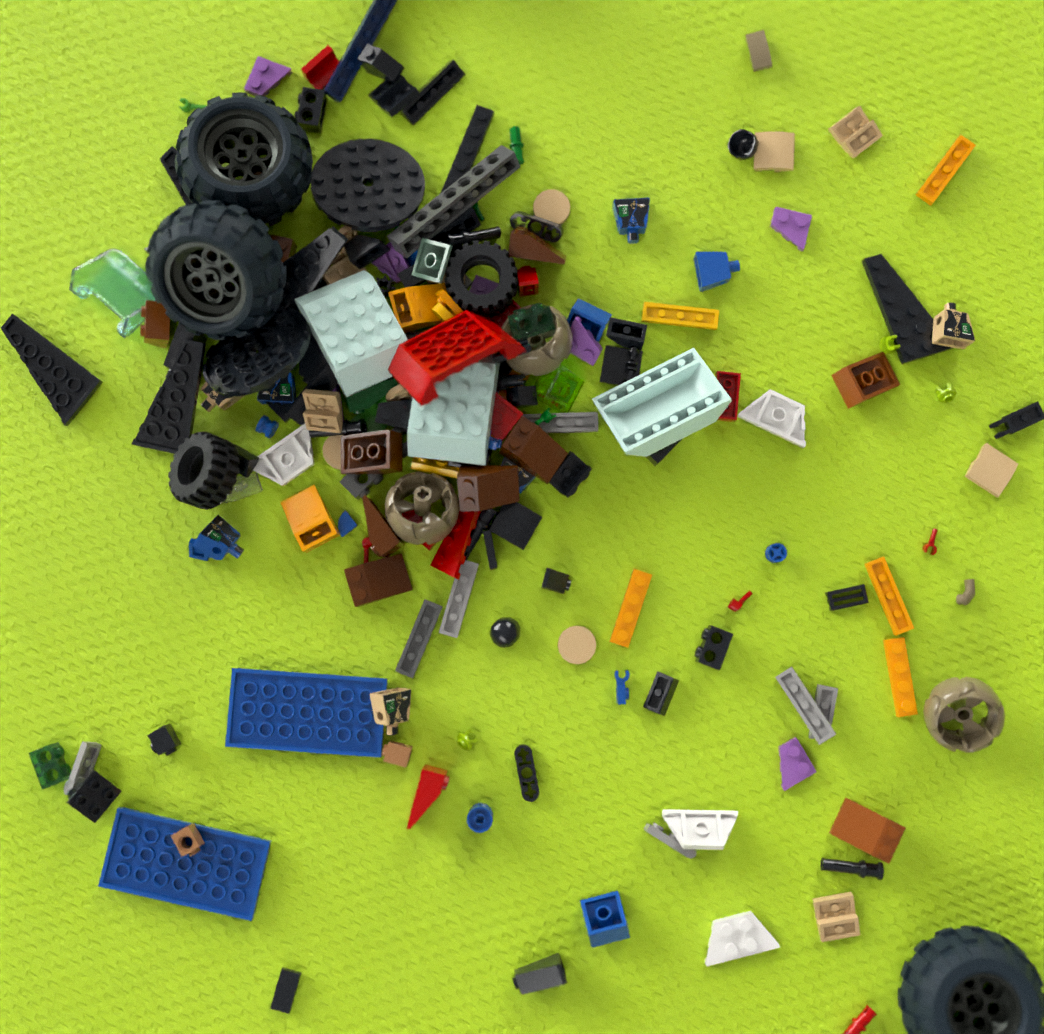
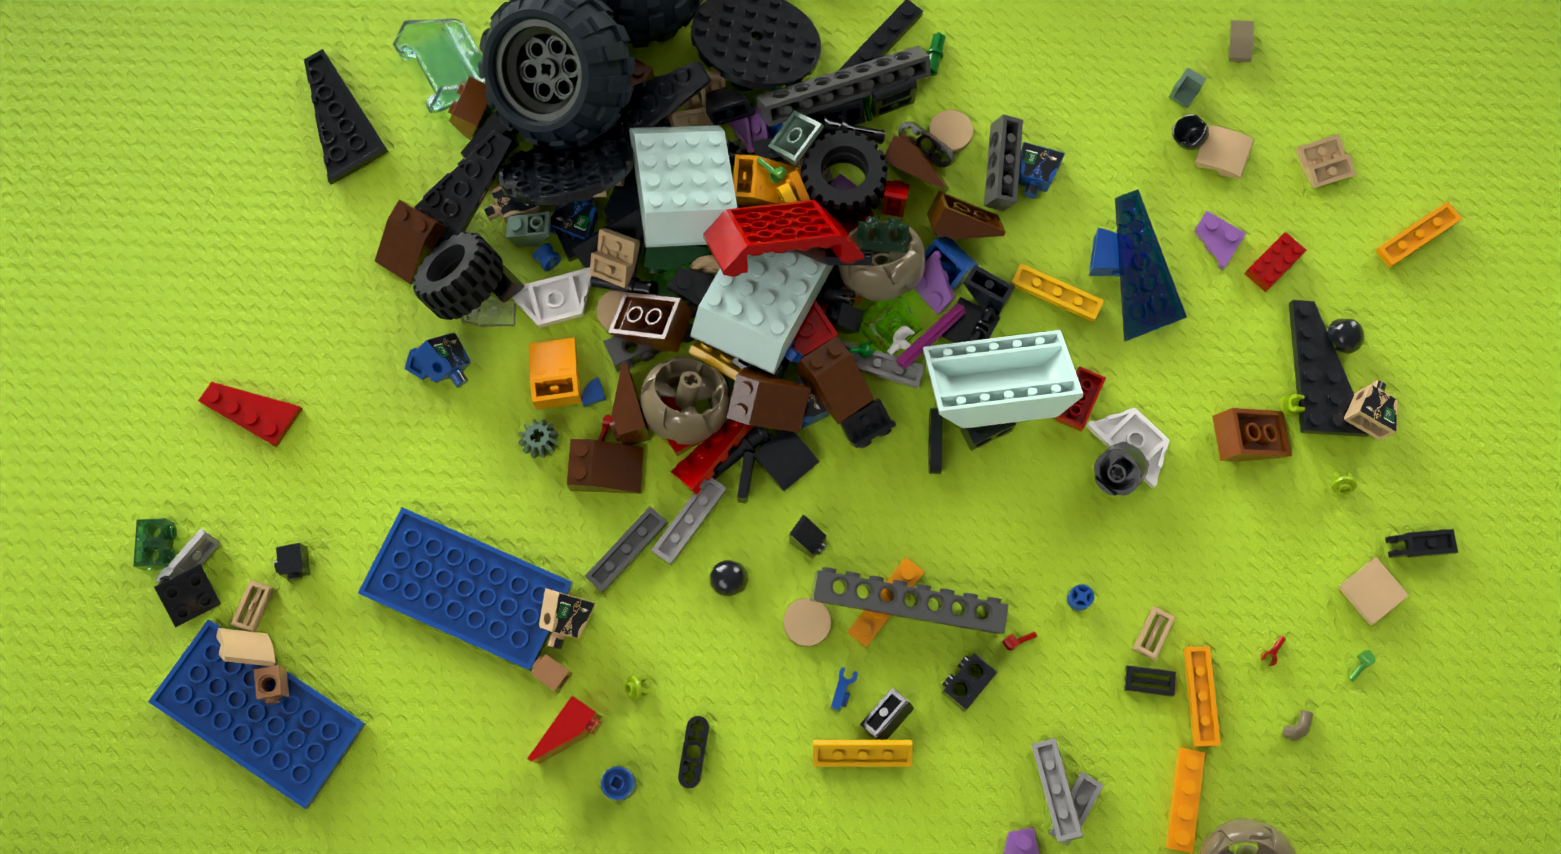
camera: 20 degrees right, 10 degrees down
(85, 634) = (256, 413): none -> red wing
(150, 452) = (407, 240): none -> reddish brown slope
(154, 798) = (260, 610): none -> tan tile
(157, 820) = (245, 647): none -> tan slope
(244, 409) = (528, 229): none -> sand green slope
(324, 577) = (546, 441): none -> sand green gear
(426, 298) = (776, 175): none -> bright green hand
(497, 195) = (893, 97): none -> black plate
(569, 396) = (899, 339): none -> white piece
(587, 282) = (962, 220): none -> reddish brown slope
(594, 386) = (931, 336): none -> magenta axle
(603, 222) = (1003, 163): none -> dark grey brick
(626, 470) = (935, 442): none -> black beam
(653, 728) = (862, 753): none -> yellow plate
(716, 595) = (993, 621): none -> dark grey brick
(728, 106) = (1187, 88): none -> sand green panel
(748, 285) = (1145, 280): none -> clear blue wing
(775, 443) = (1127, 458): none -> black brick
(838, 559) = (1144, 651): none -> tan tile
(841, 231) = (1275, 261): none -> red piece
(914, 273) = (1346, 335): none -> black hair
(1002, 524) = (1367, 660): none -> bright green hand

